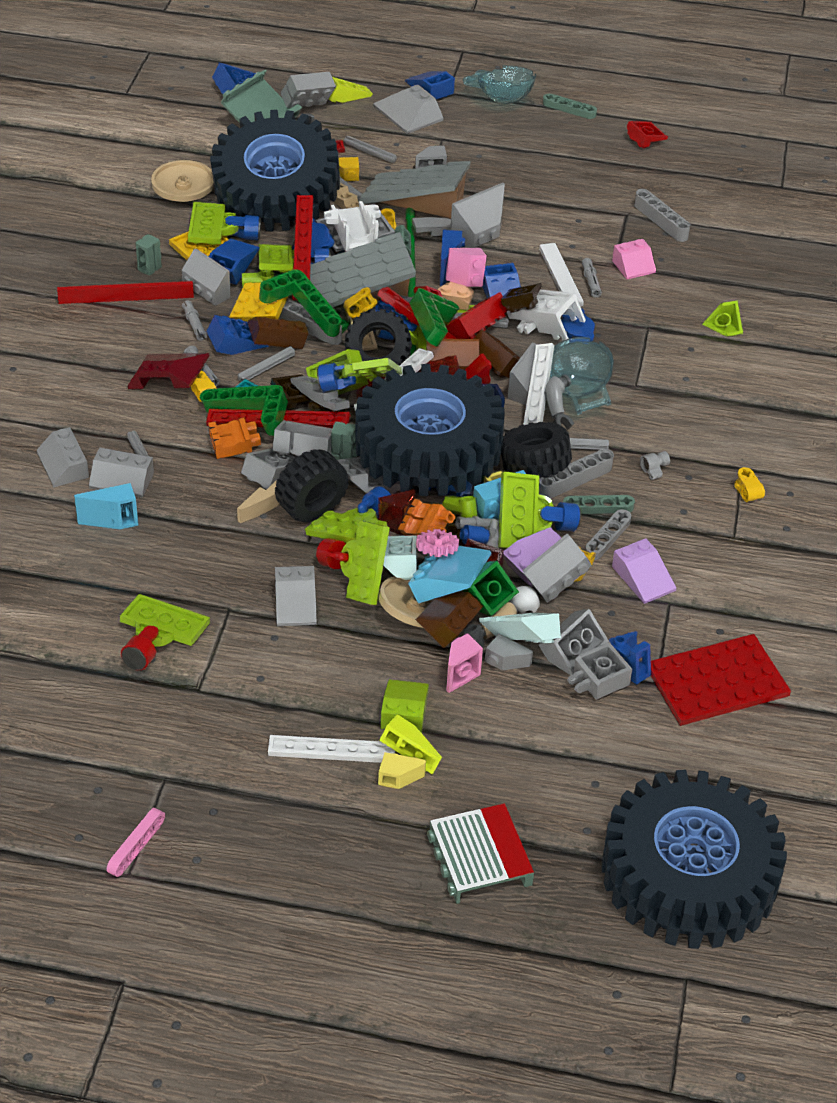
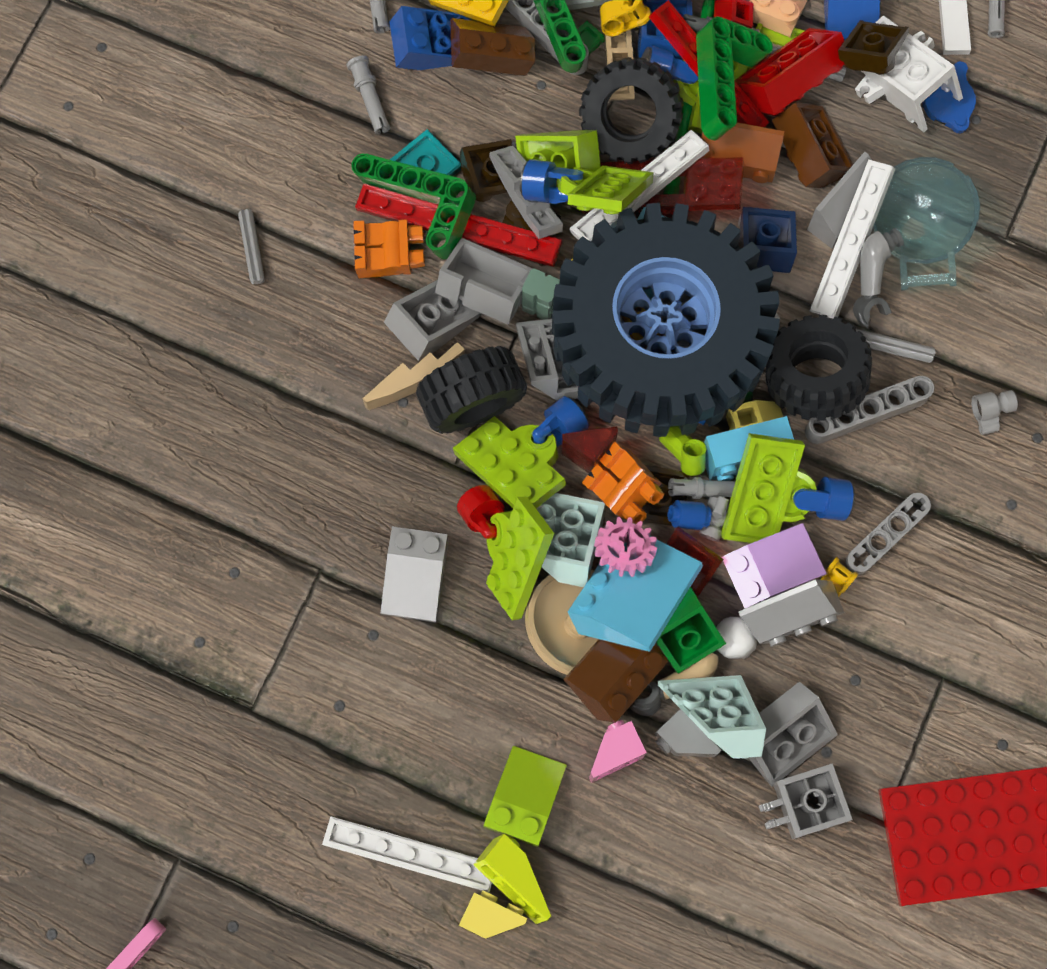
camera: 15 degrees right, 30 degrees up
(63, 458) = (140, 247): light grey slope -> none
(107, 507) = (188, 364): medium azure slope -> none
(118, 468) = (215, 291): light grey slope -> none
(156, 626) = (216, 592): lime plate -> none
(179, 367) = (319, 97): dark red slope -> none
(201, 383) = (361, 138): yellow piece -> none
(266, 364) = (465, 103): light grey axle -> none
(481, 368) = (769, 188): red slope -> none
(624, 502) = (888, 471): sand green beam -> none
(631, 652) = (861, 796): blue tile -> none
(643, 570) = (921, 620): lavender slope -> none

